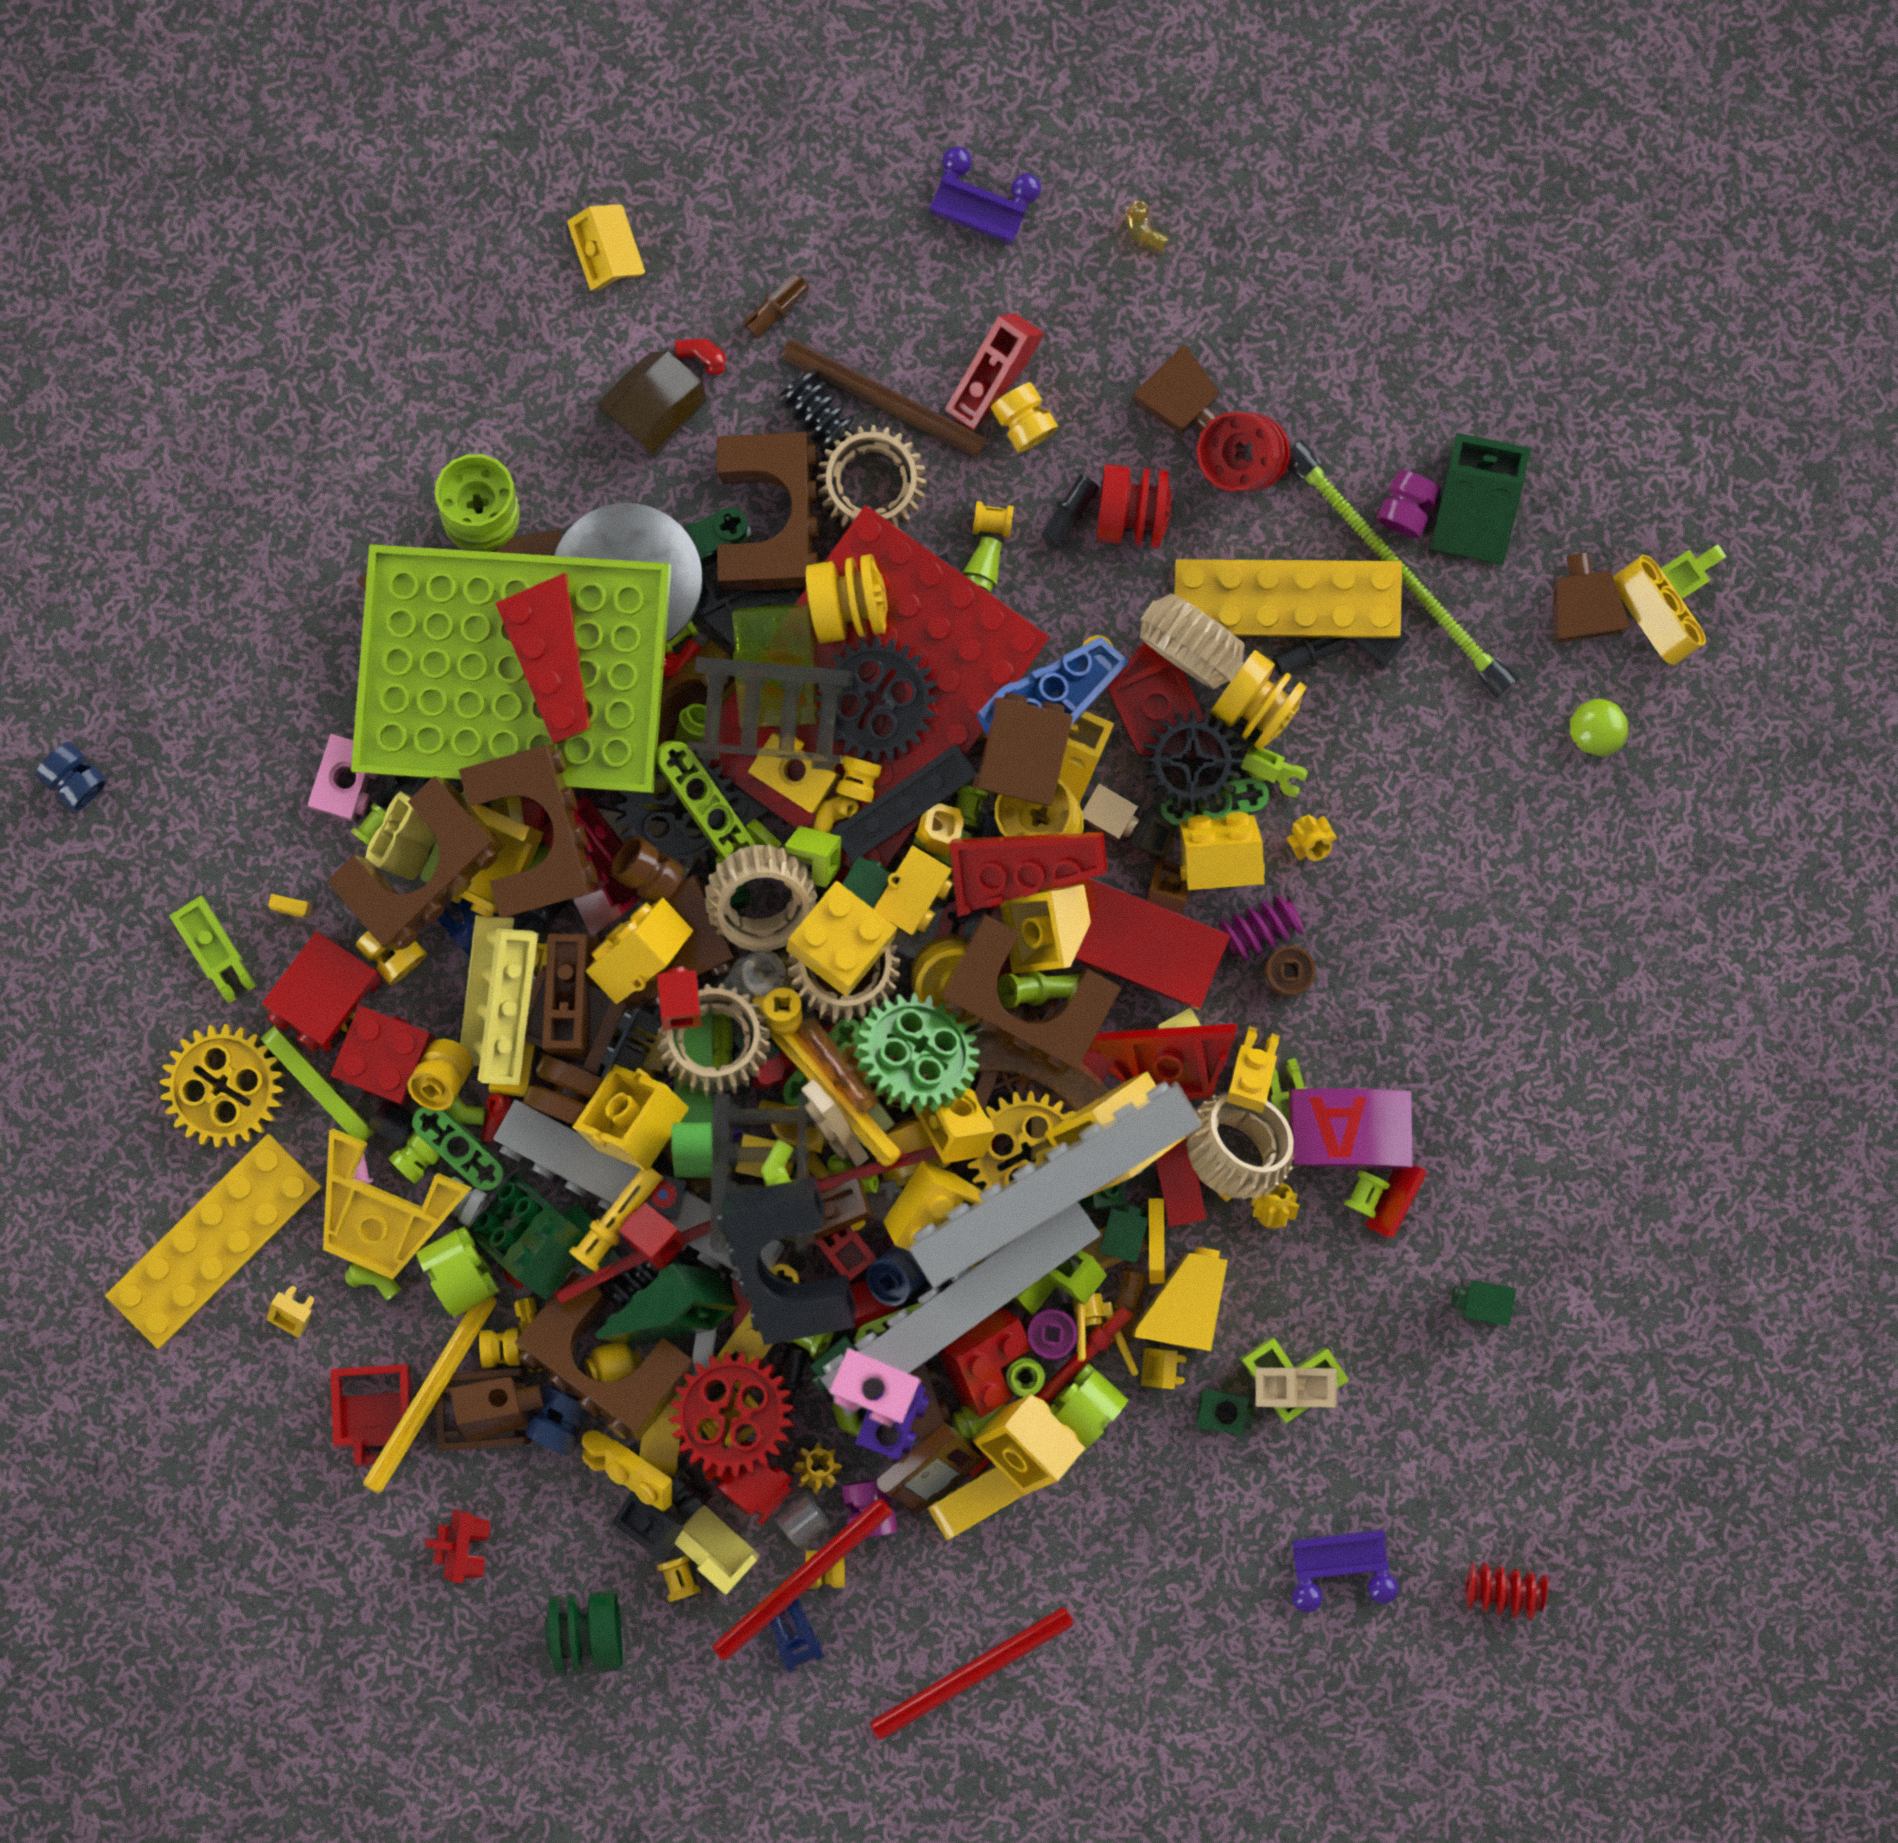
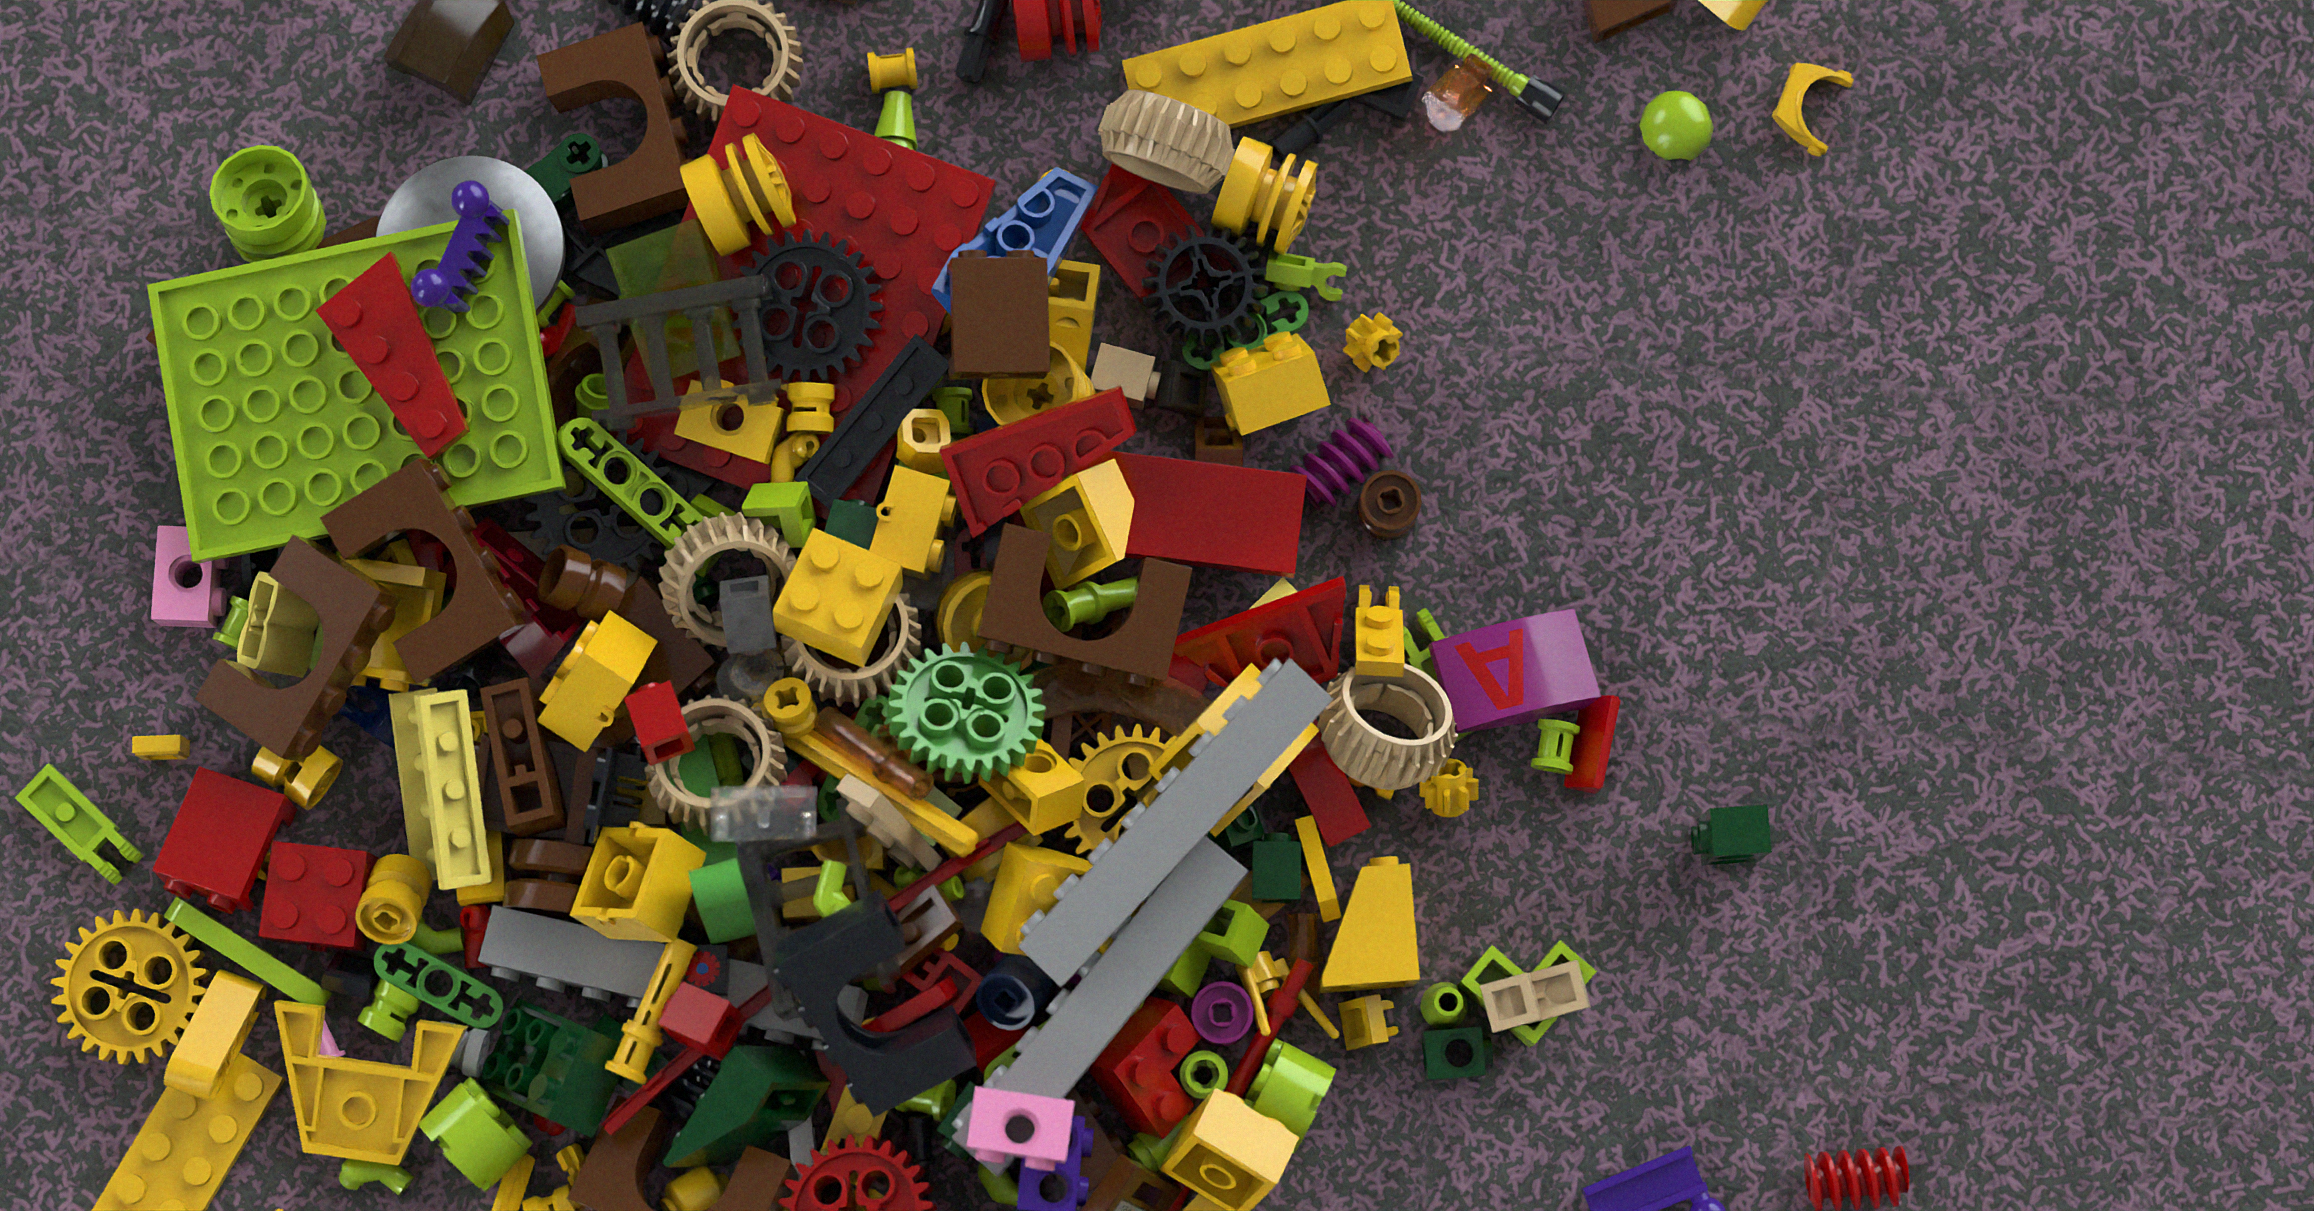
camera: 15 degrees left, 5 degrees down
(278, 1142) = (215, 1035): none -> yellow beam
(639, 565) = (464, 251): none -> dark purple gear
(741, 1090) = (763, 812): none -> clear hinge
(768, 932) = (747, 615): none -> flat silver brick
(815, 1267) = (913, 1007): none -> red tile
(1214, 1371) = (1438, 1017): none -> lime cone
(1433, 657) = (1458, 94): none -> clear orange hips
(1692, 737) = (1788, 111): none -> yellow helmet

